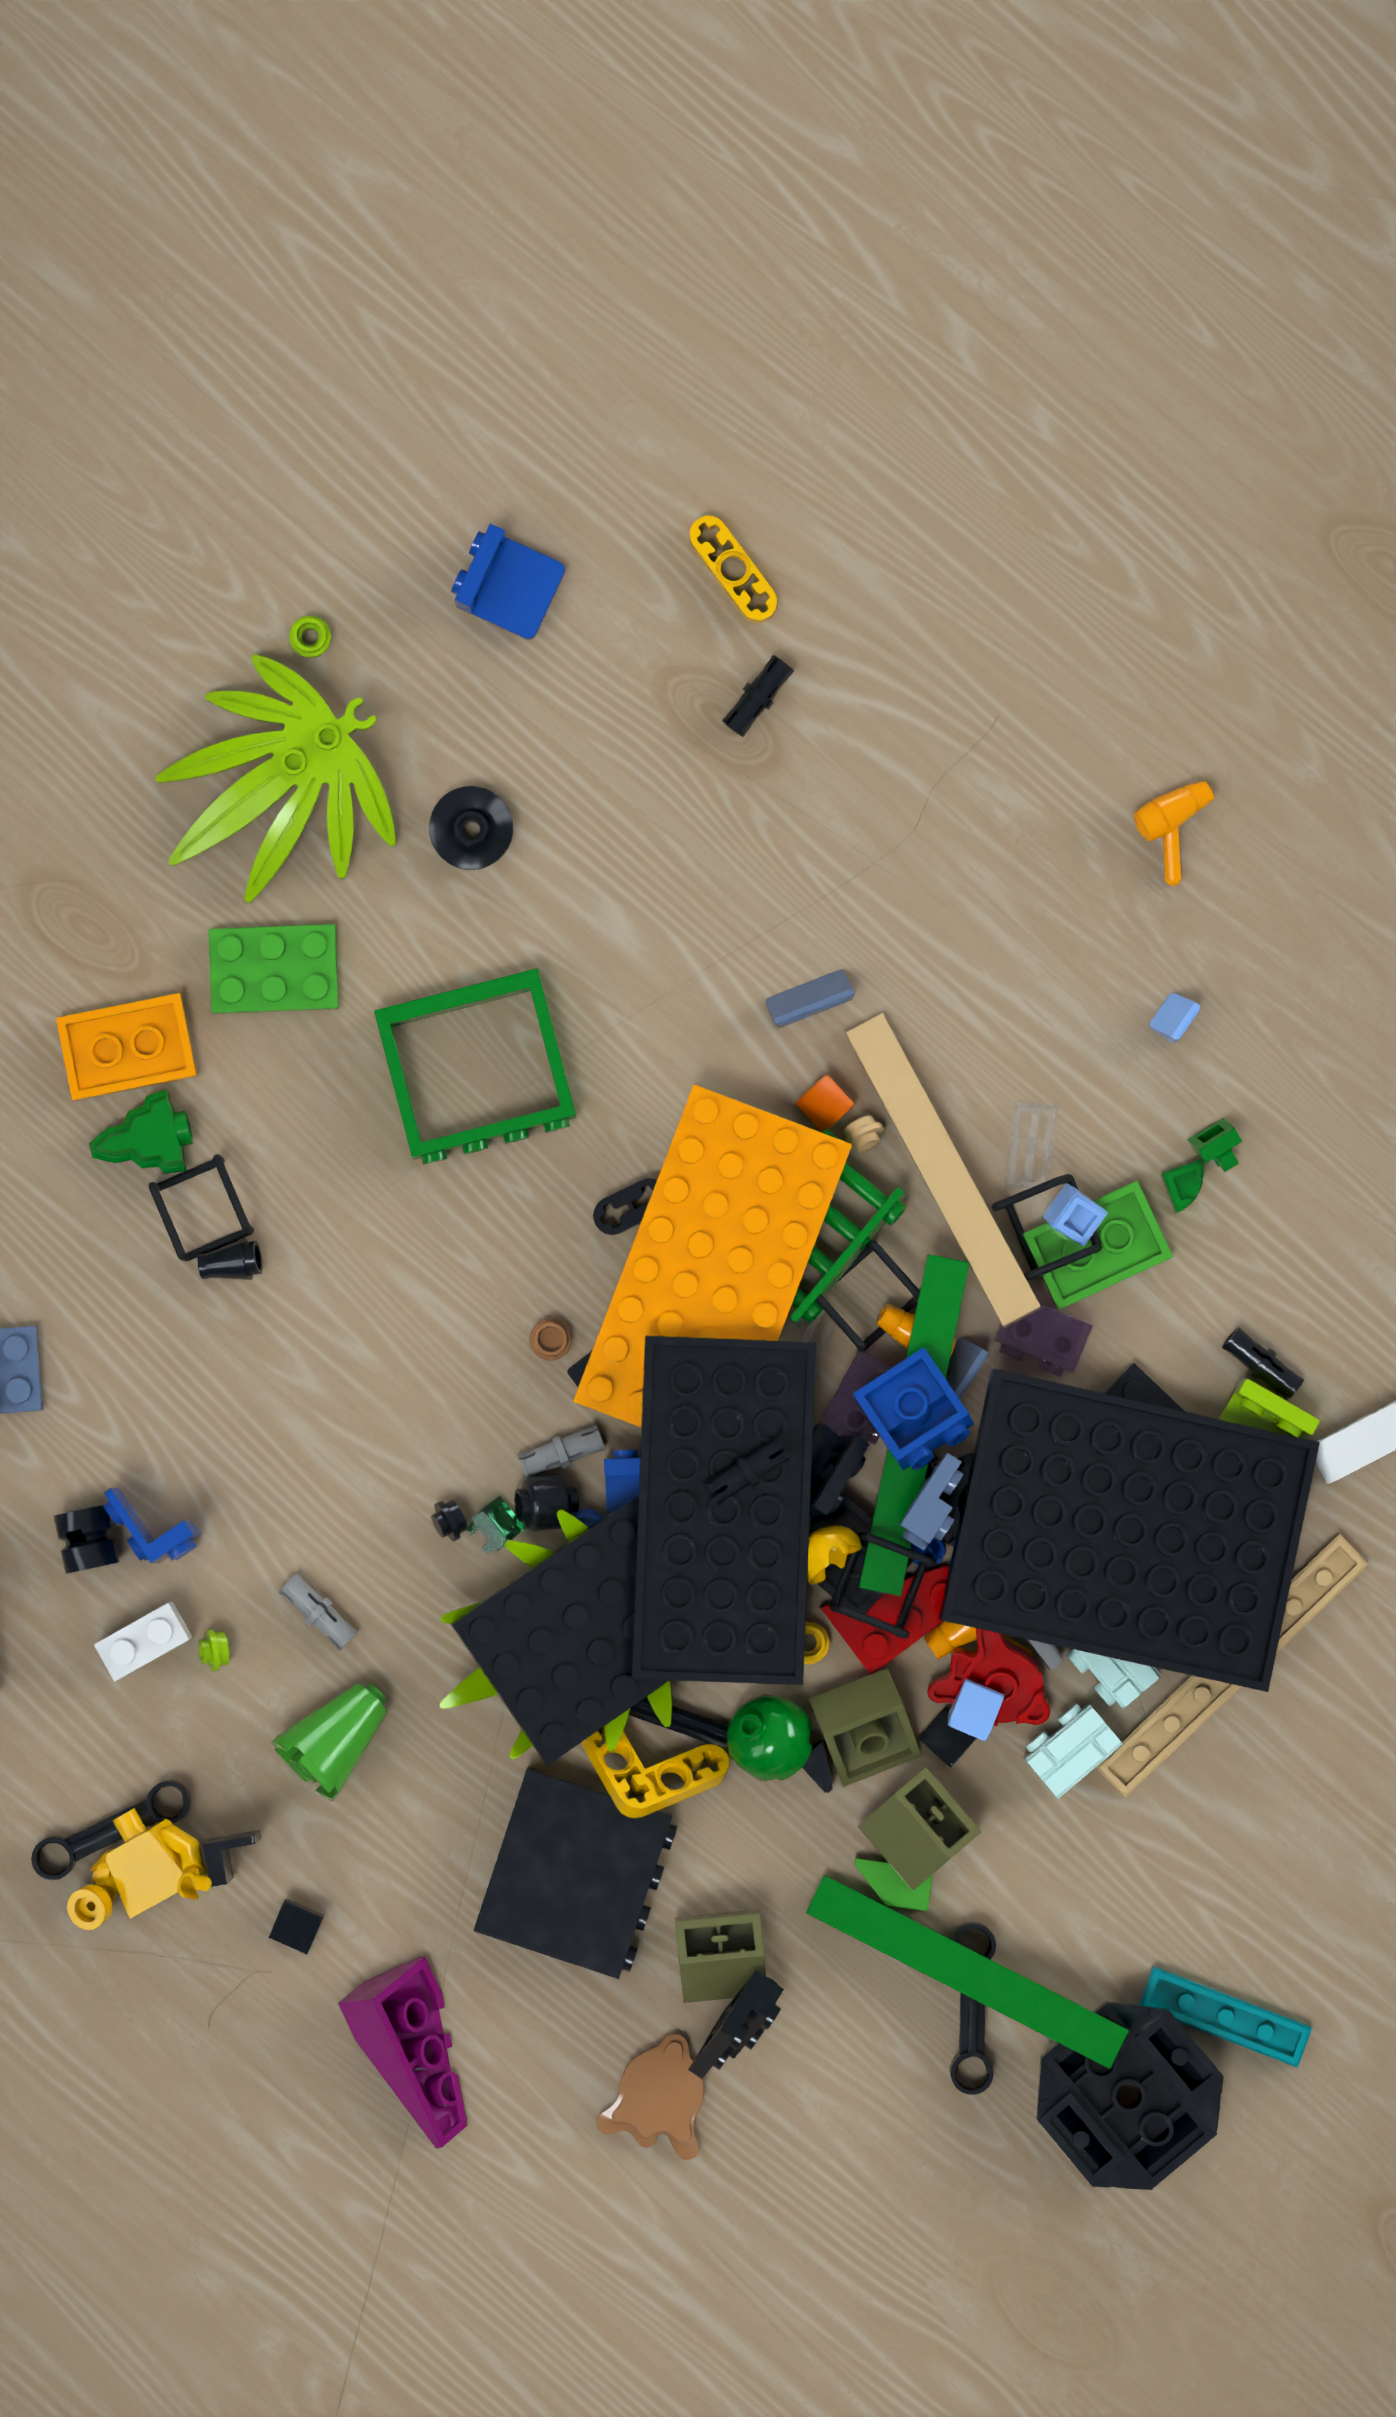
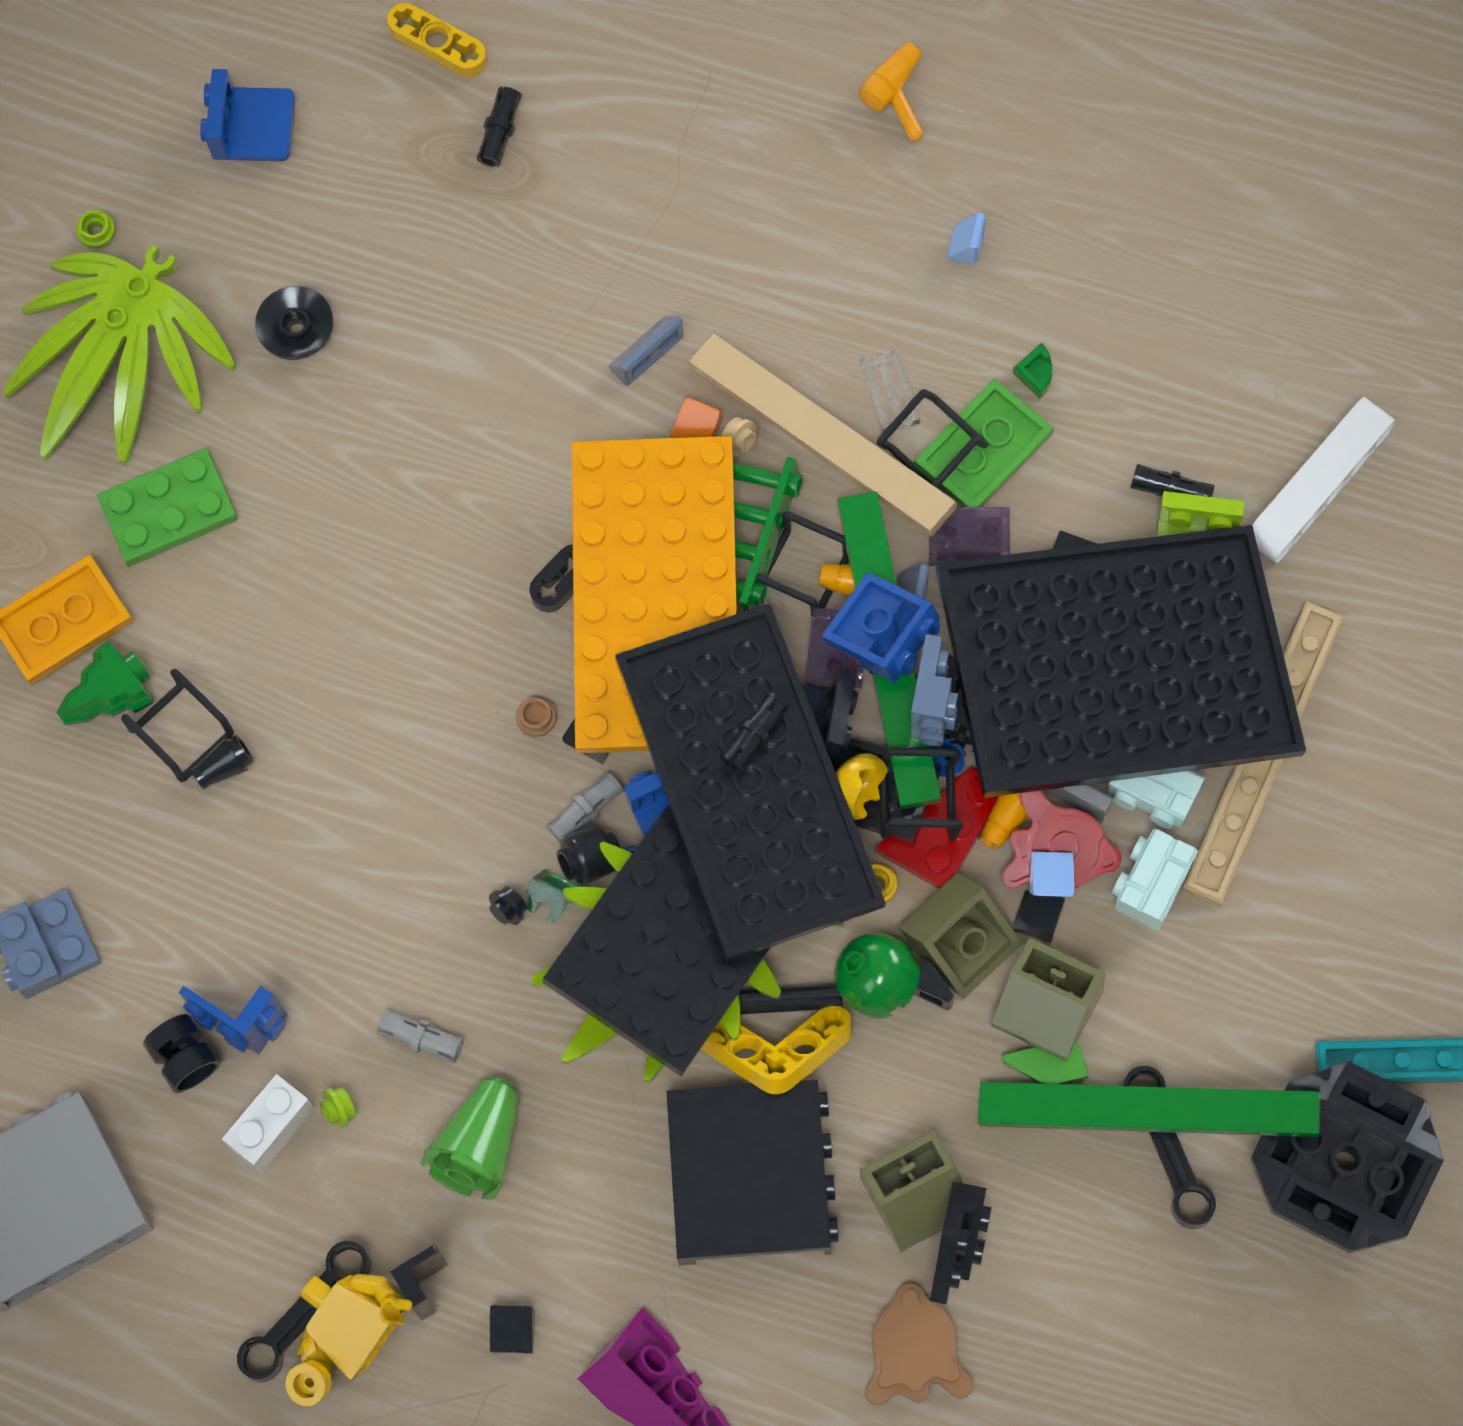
camera: 10 degrees left, 15 degrees down
(511, 1129) = (340, 465): green window -> none
(1074, 1214) = (952, 422): light blue slope -> none
(1216, 1144) = (1050, 324): green tile -> none

